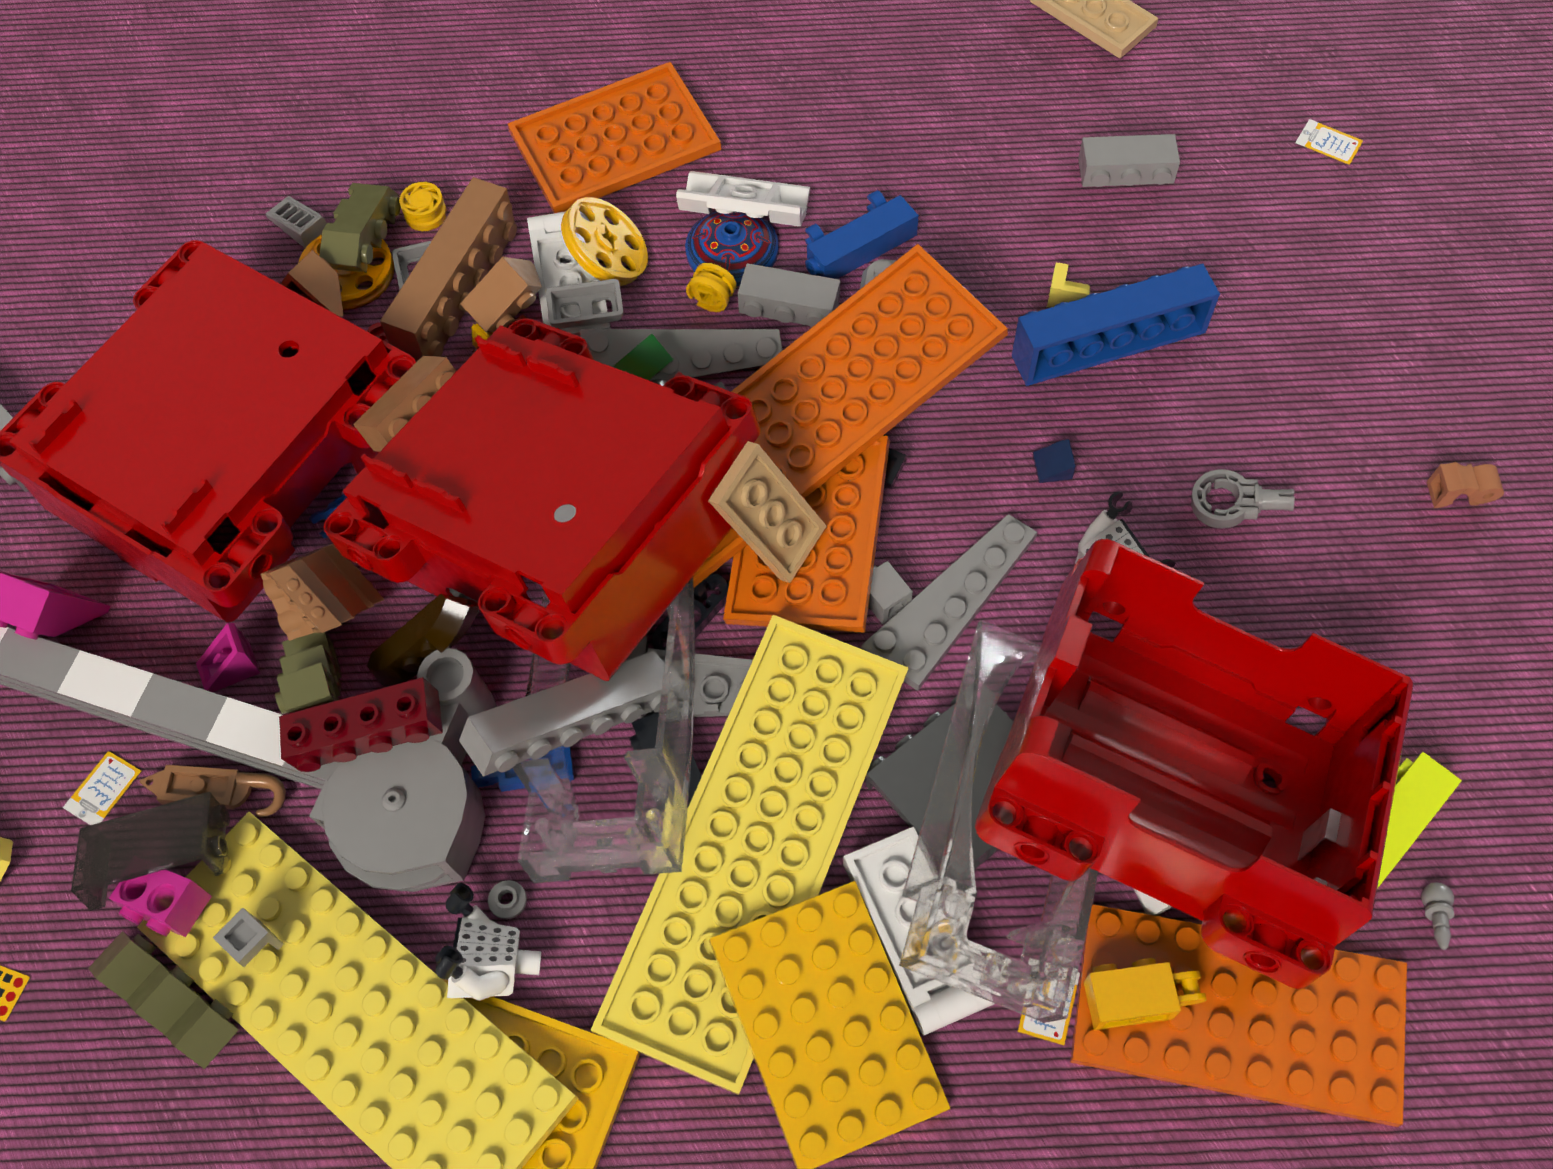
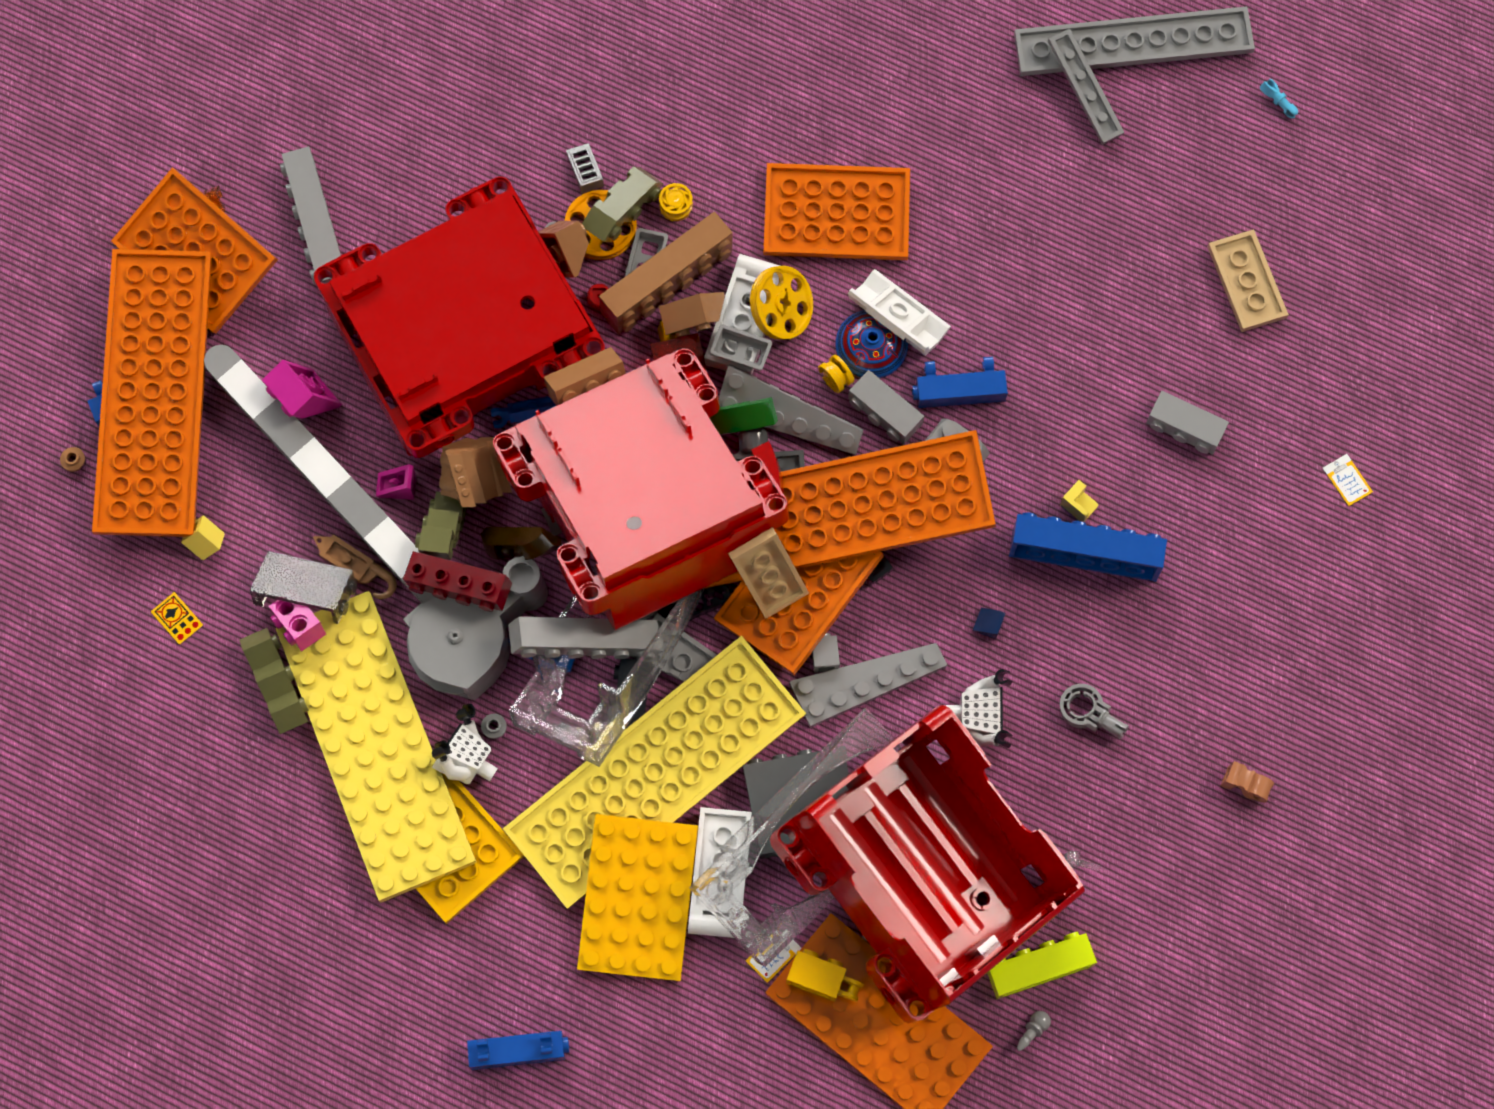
camera: 25 degrees right, 10 degrees up
(102, 789) = (289, 527): white sticker -> none
(245, 937) = (336, 672): light grey panel -> none

